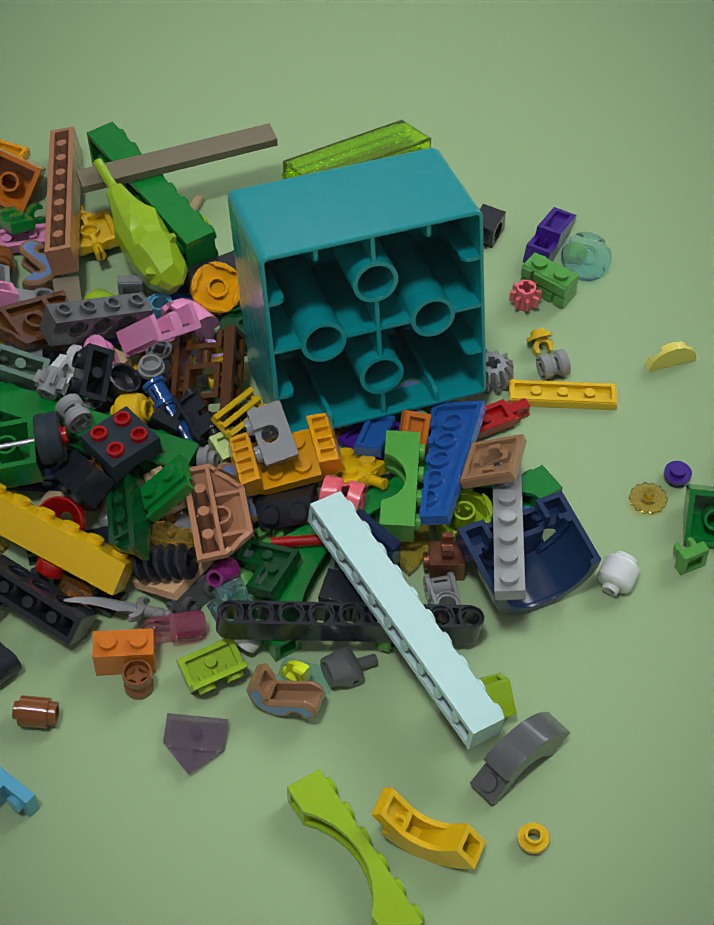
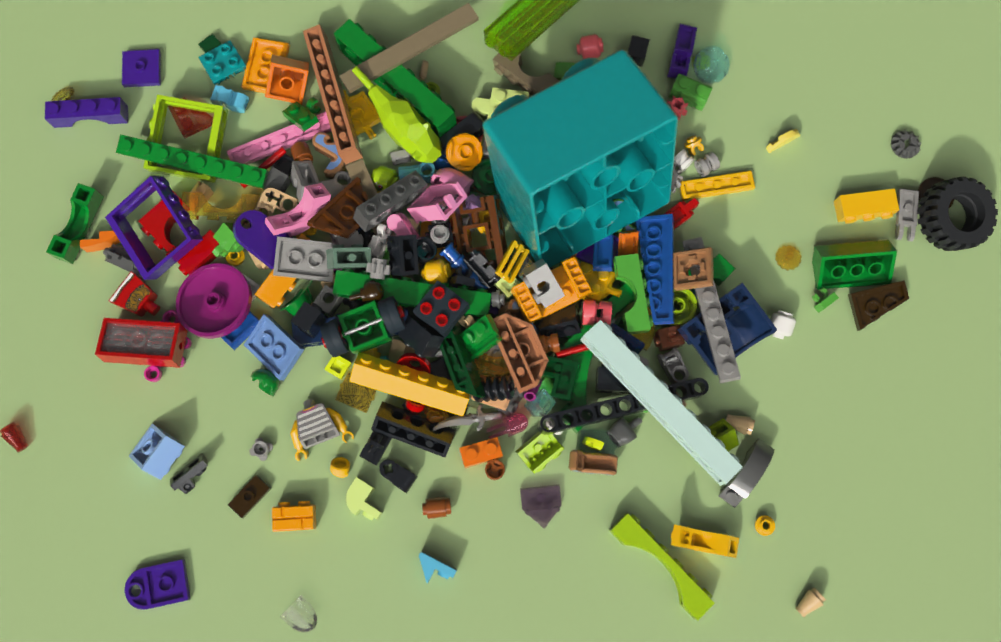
camera: 15 degrees left, 25 degrees up
(28, 407) = (371, 291): none -> dark brown piece
(74, 413) = (402, 291): light grey wheel -> none
(265, 522) = (550, 343): none -> dark orange wheel
(520, 354) = (682, 160): none -> white wheel
(529, 691) = (741, 423): none -> tan cone
(677, 473) = (804, 235): dark purple plate -> none

